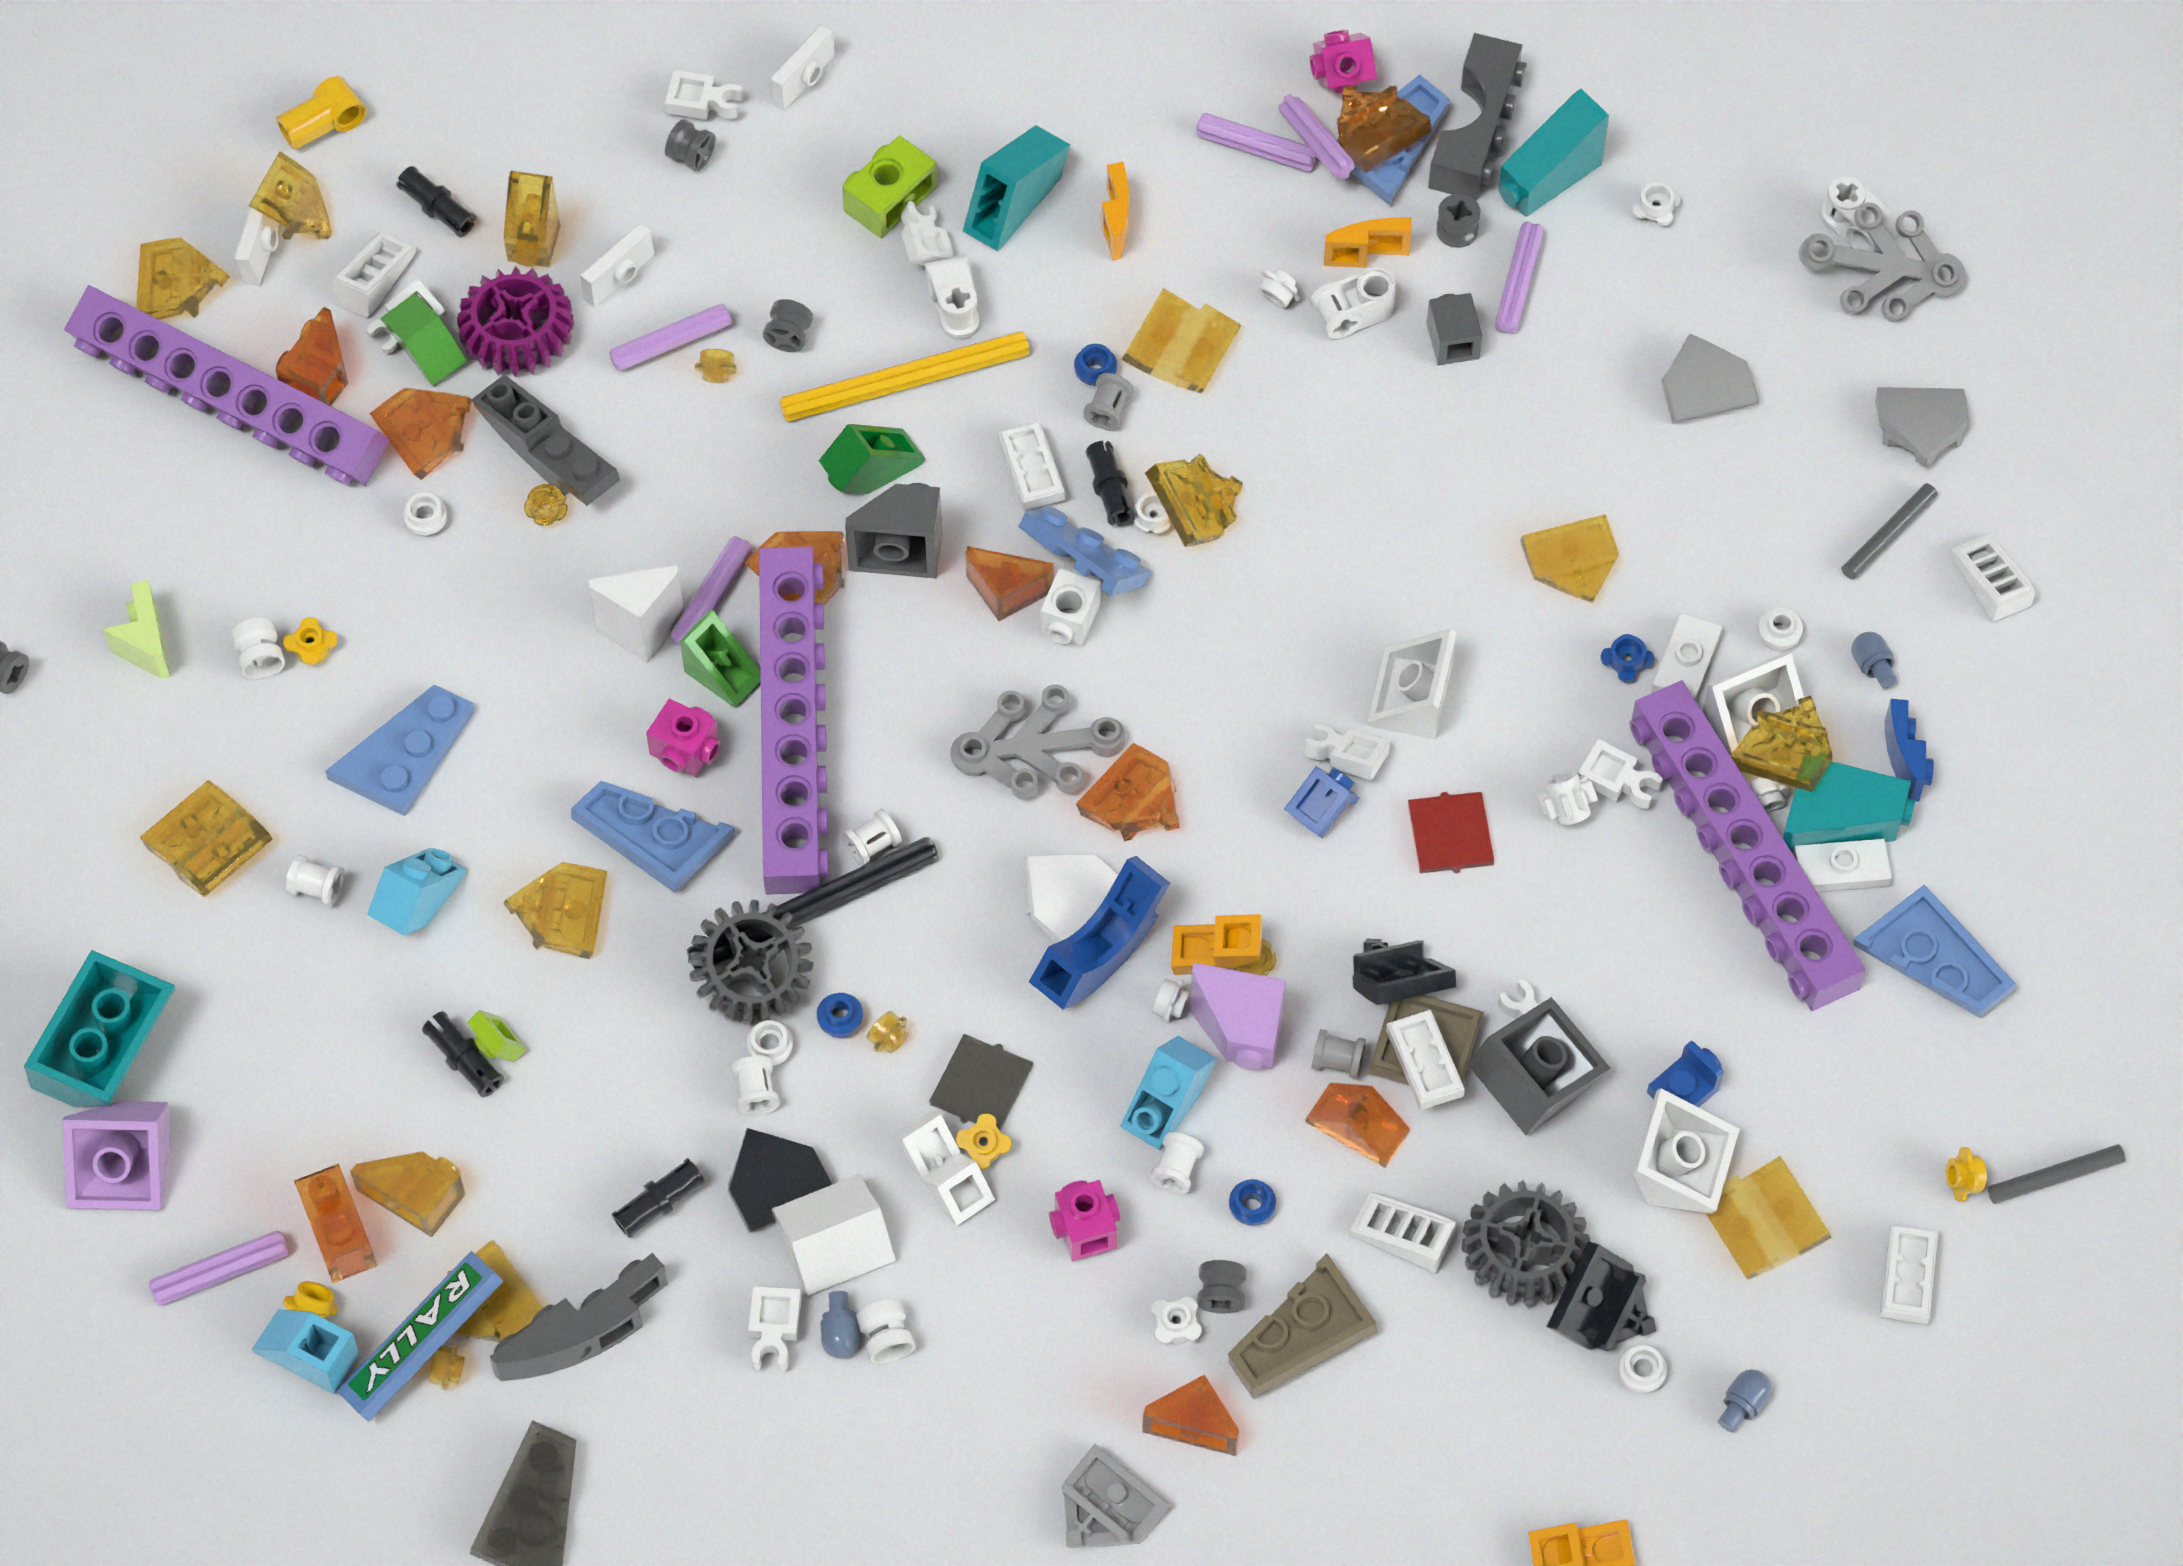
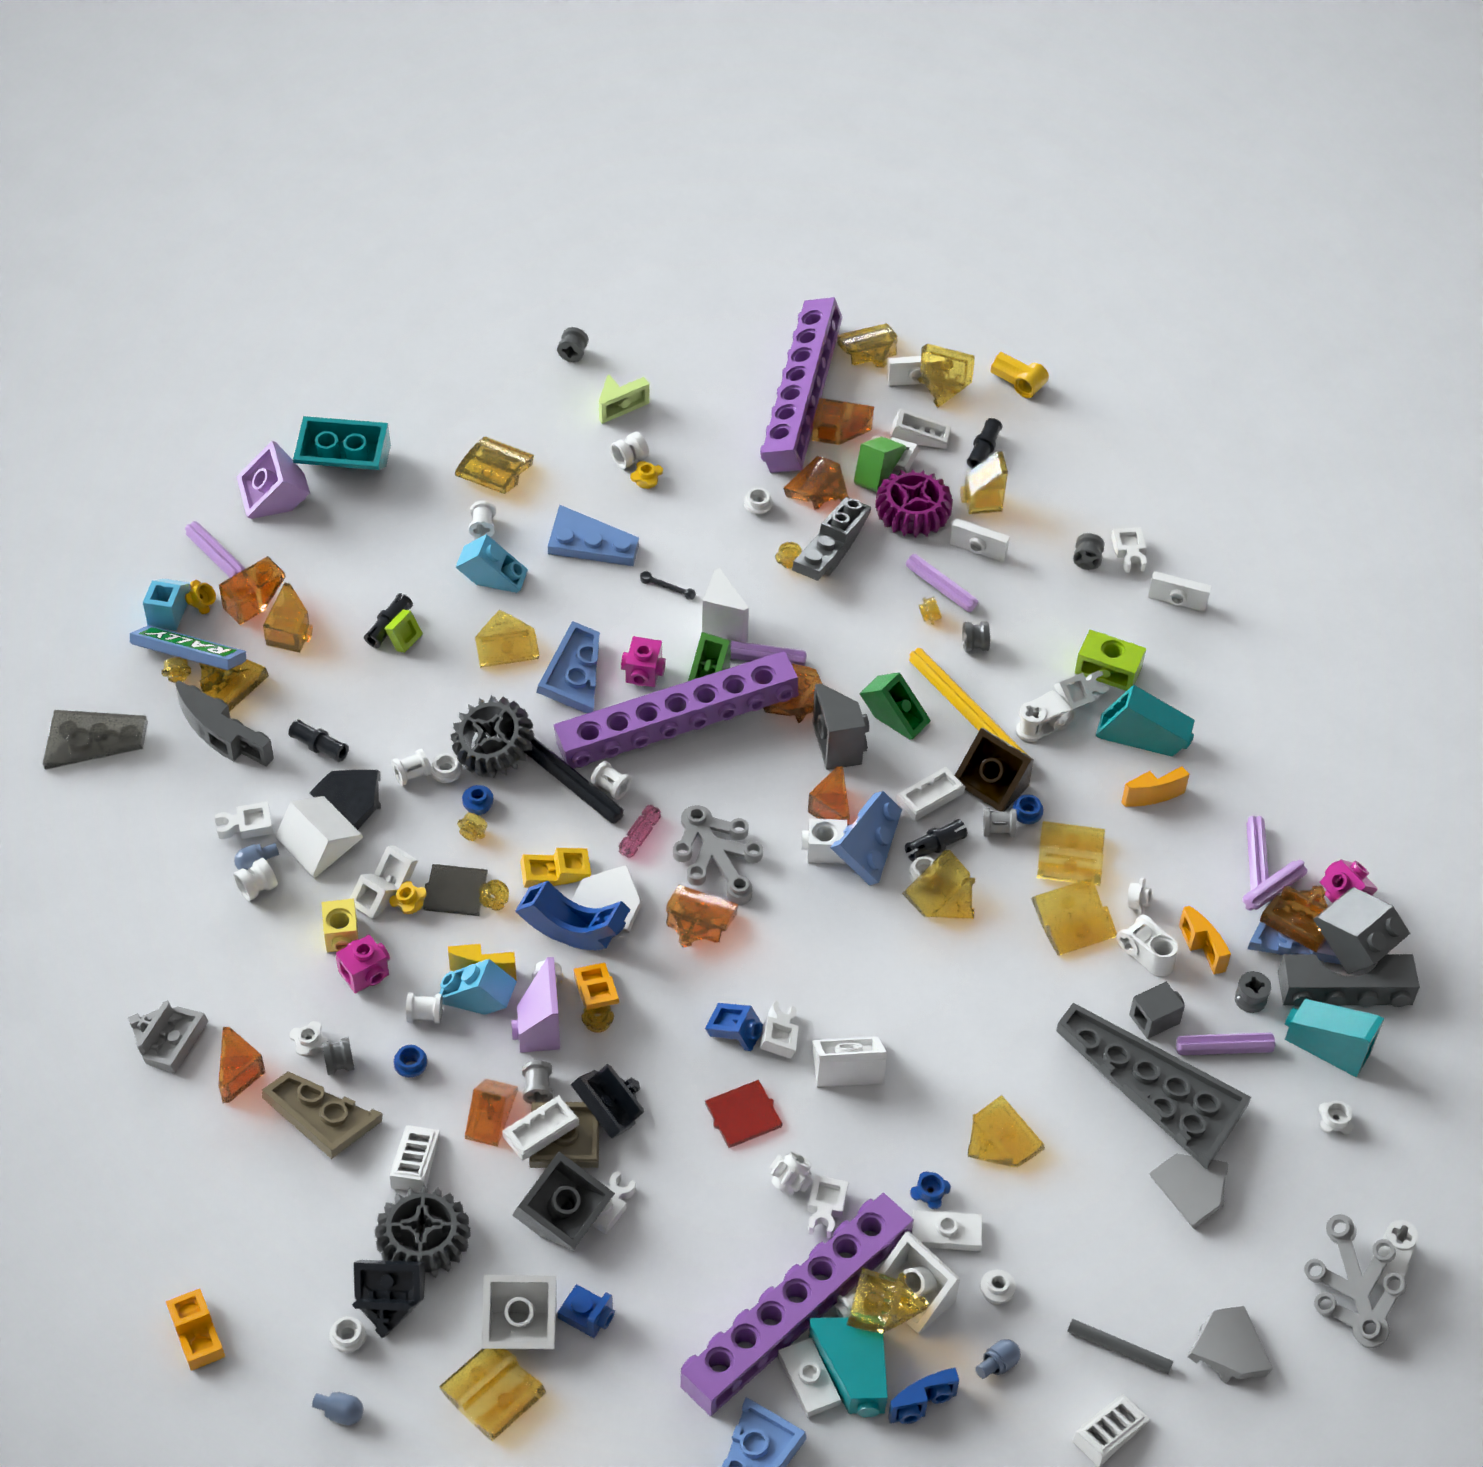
camera: 70 degrees right, 10 degrees down
(506, 698) = (646, 577): none -> black hinge
(966, 828) = (639, 831): none -> clear pink axle
(992, 947) = (562, 868): none -> yellow slope
(997, 1220) = (337, 915): none -> light yellow brick
(1017, 1032) = (498, 890): none -> clear yellow plate
(1027, 378) = (995, 771): none -> dark brown slope
(1125, 1078) = (465, 955): none -> yellow slope
(1281, 371) = (1074, 916): none -> clear yellow slope
(1430, 67) = (1360, 929): none -> dark grey slope
(1575, 353) = (1174, 1094): none -> dark grey wing

